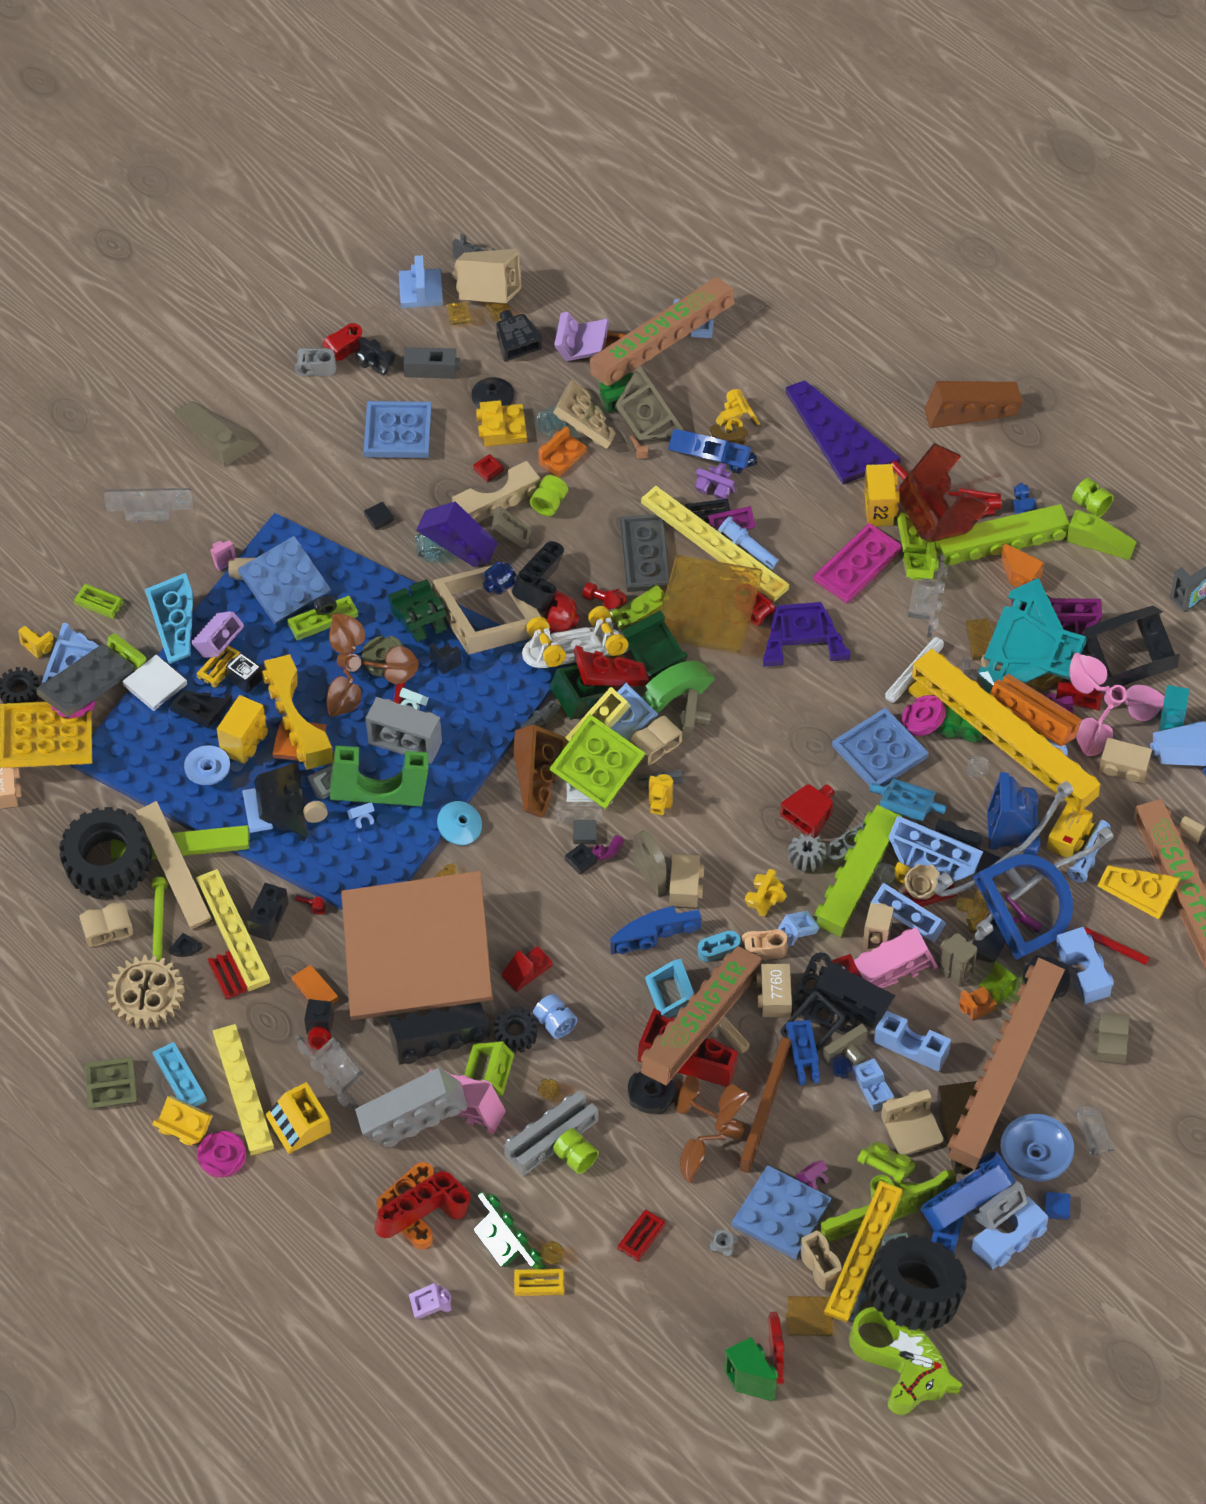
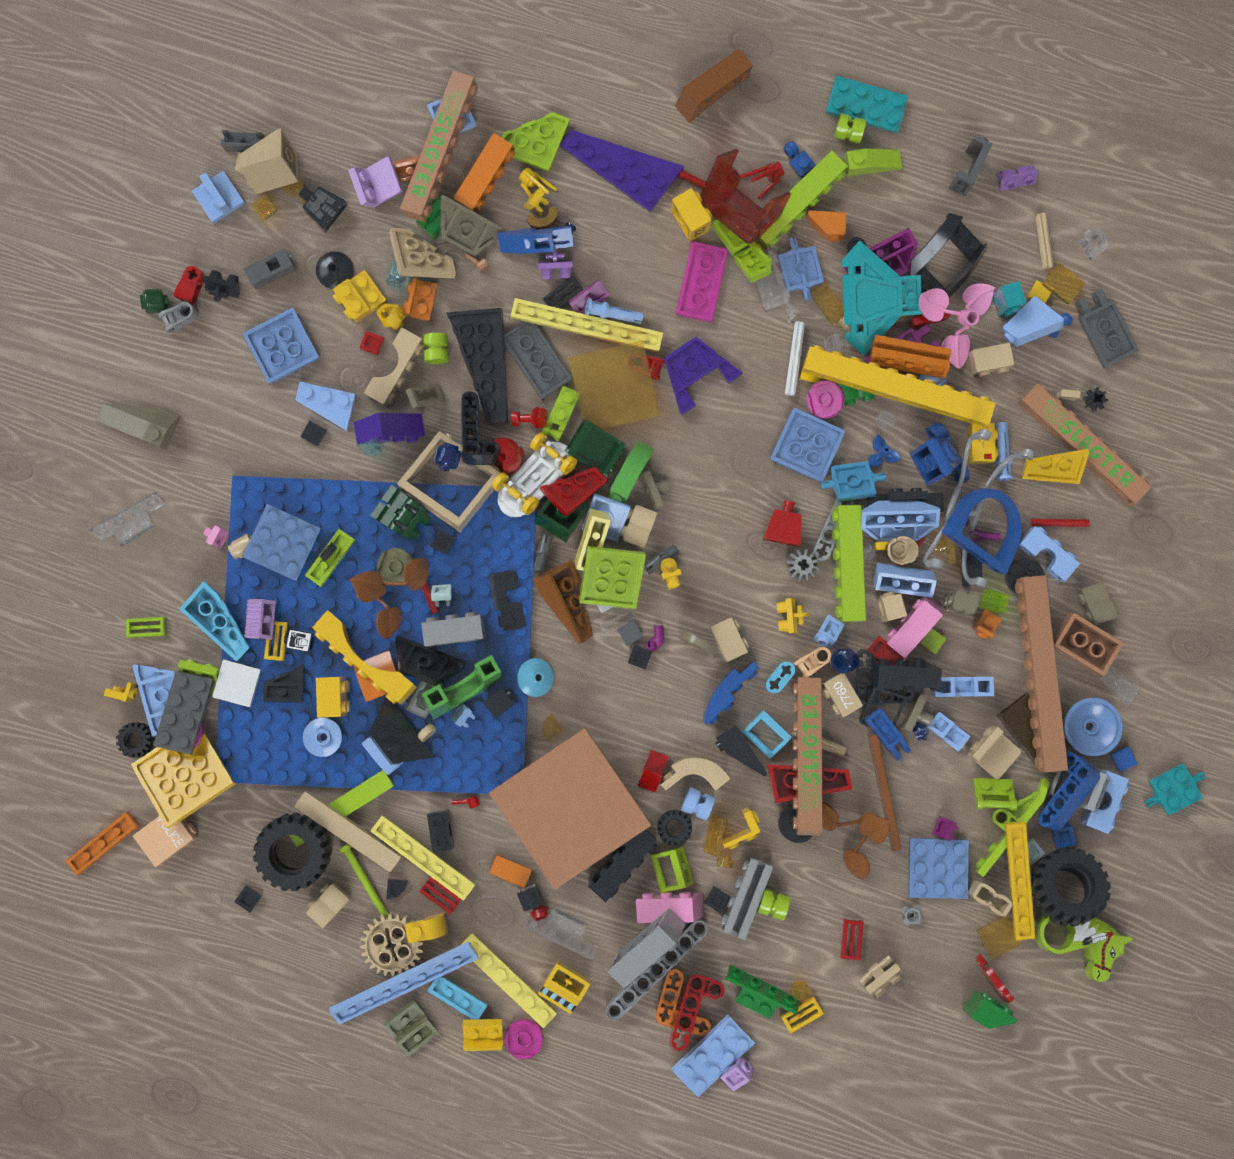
camera: 30 degrees left, 30 degrees up
(28, 883) = (248, 898): none -> black tile
(134, 1029) = (404, 983): none -> light blue plate
(197, 989) = (427, 929): none -> yellow brick
(300, 337) = (153, 301): none -> dark green head
(346, 734) = (424, 662): none -> black wing
(400, 1161) = (653, 978): none -> light grey beam
(408, 1268) = (713, 1055): none -> light blue plate
(409, 495) = (327, 402): none -> light blue wing
(409, 813) = (500, 702): none -> black brick
(473, 754) = (511, 613): none -> black piece
(515, 1121) = (717, 899): none -> black tile
(523, 449) = (393, 317): none -> yellow piece
(556, 1059) = (715, 834): none -> clear yellow slope
(572, 981) = (699, 766): none -> tan arch
(585, 1062) = (748, 834): none -> yellow bracket
(593, 522) = (483, 350): none -> black wing
(630, 987) = (737, 747): none -> black slope
(651, 1280) = (882, 978): none -> tan plate
(695, 373) = (484, 173): none -> orange brick
(763, 375) = (538, 140): none -> lime plate
(796, 952) = (844, 660): none -> clear blue head
(907, 990) = (932, 641): none -> lime tile
(958, 787) = (883, 451): none -> blue plant
(968, 594) = (800, 268): none -> medium blue plate
(1075, 1065) = (1086, 644): none -> nougat brick
(1100, 1264) = (1175, 789): none -> teal plate
(1131, 491) = (876, 105): none -> teal plate

